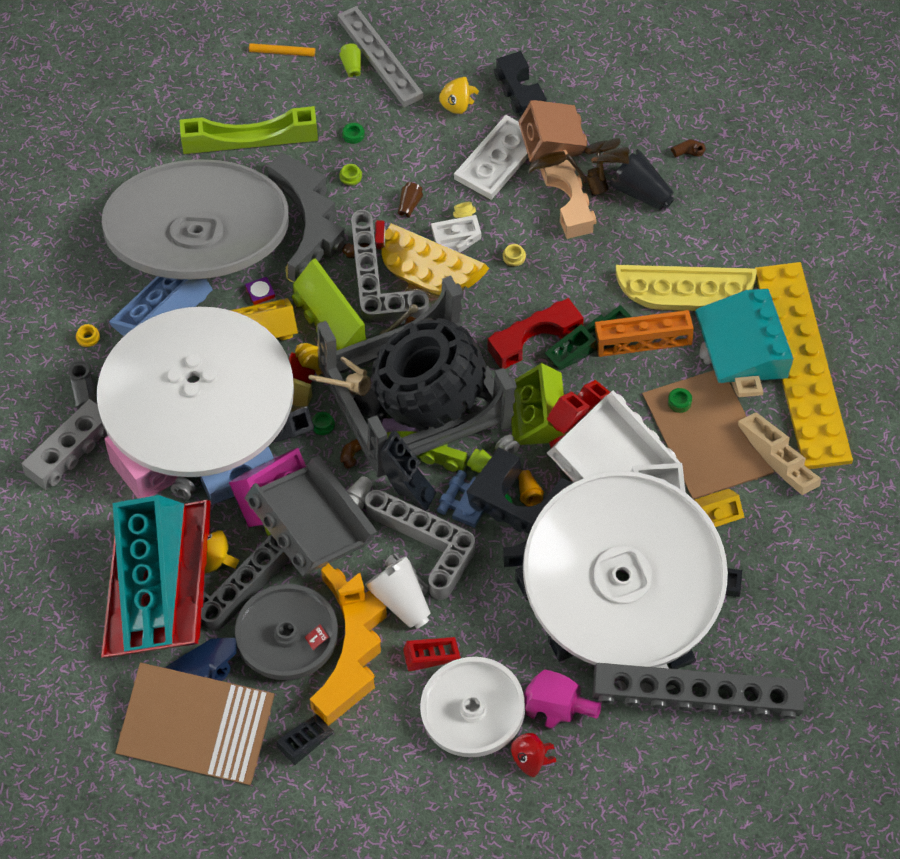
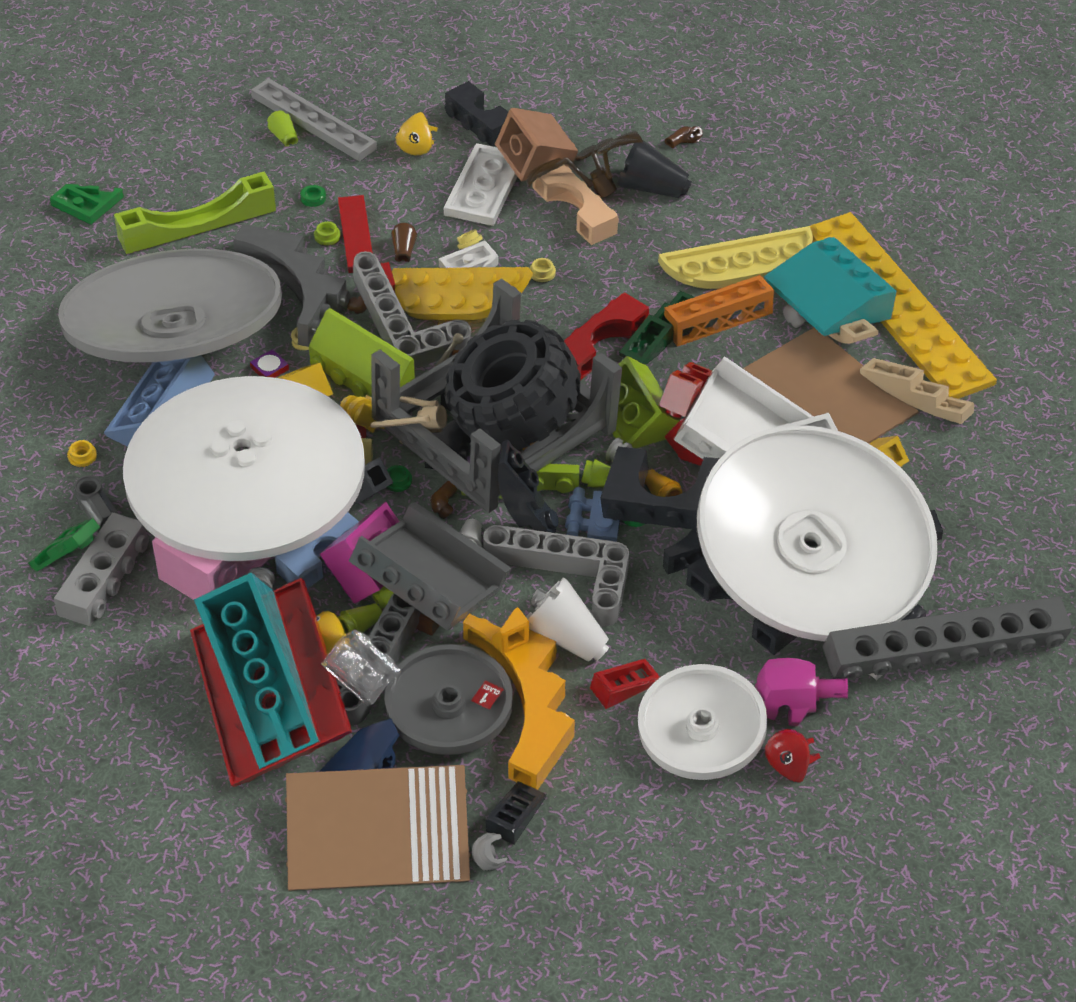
camera: 20 degrees left, 10 degrees down
(53, 413) = (68, 541): none -> green wing
(167, 95) = (85, 201): none -> green wing
(222, 590) = (361, 666): none -> clear bracket
(245, 542) = (360, 618): none -> lime cone
(269, 763) = (484, 852): none -> light grey arm
(278, 49) = (200, 135): light orange bar -> none
(375, 178) = (354, 227): none -> red tile
(679, 400) = (786, 365): green tile -> none

